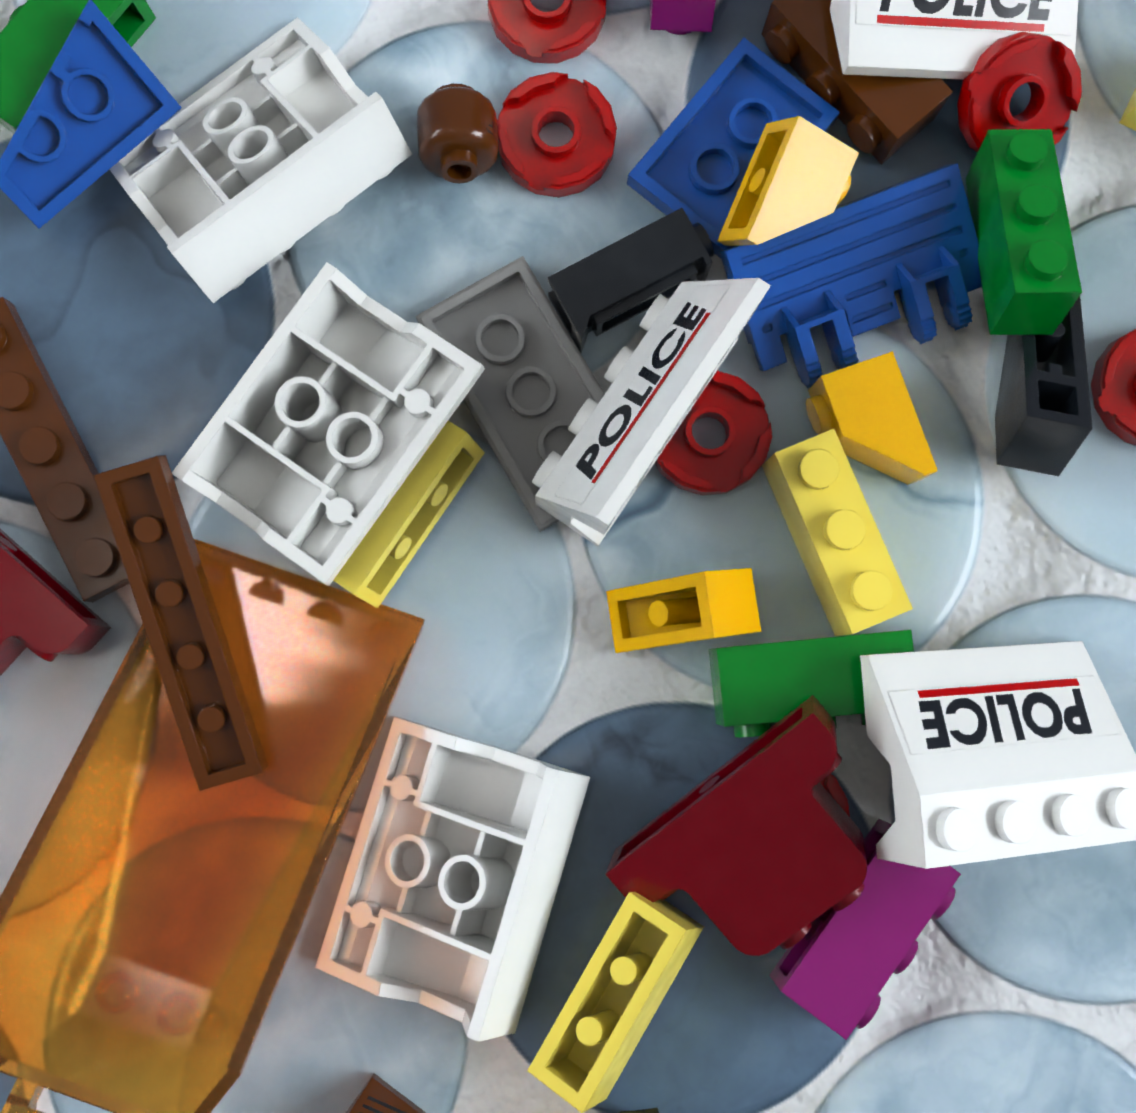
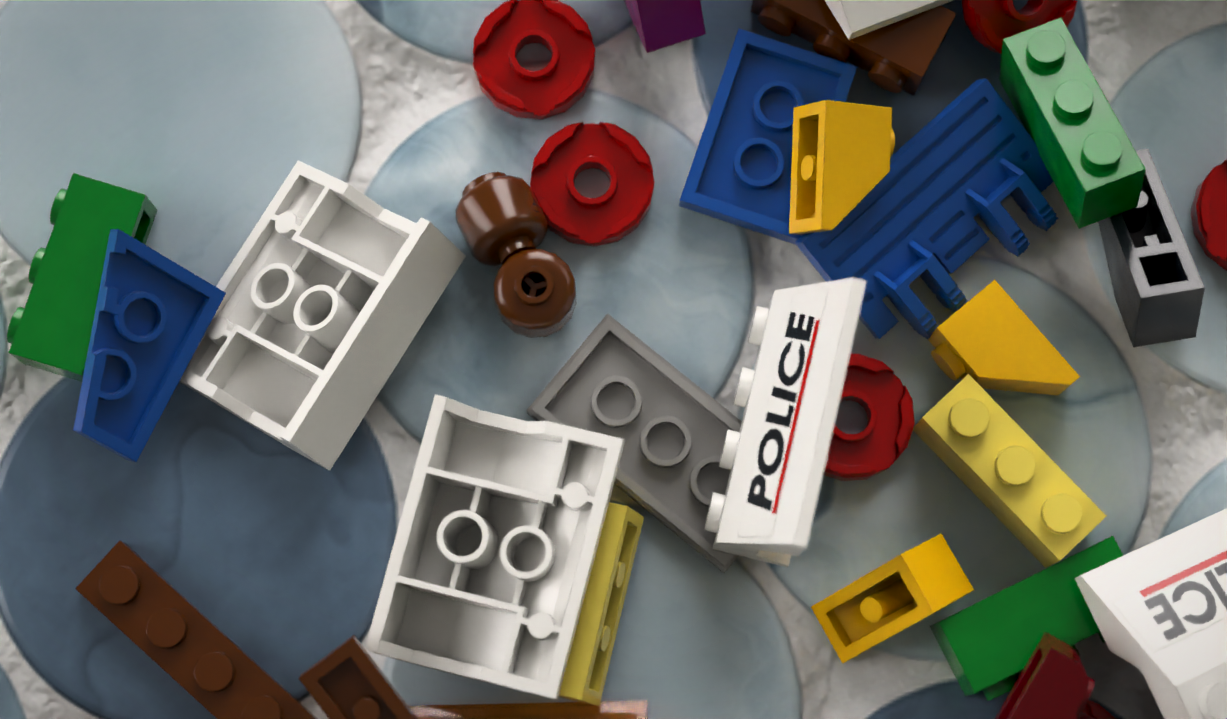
camera: 15 degrees left, 5 degrees down
(461, 209) = (539, 272): none -> reddish brown head
(630, 275) = (719, 296): black window -> none

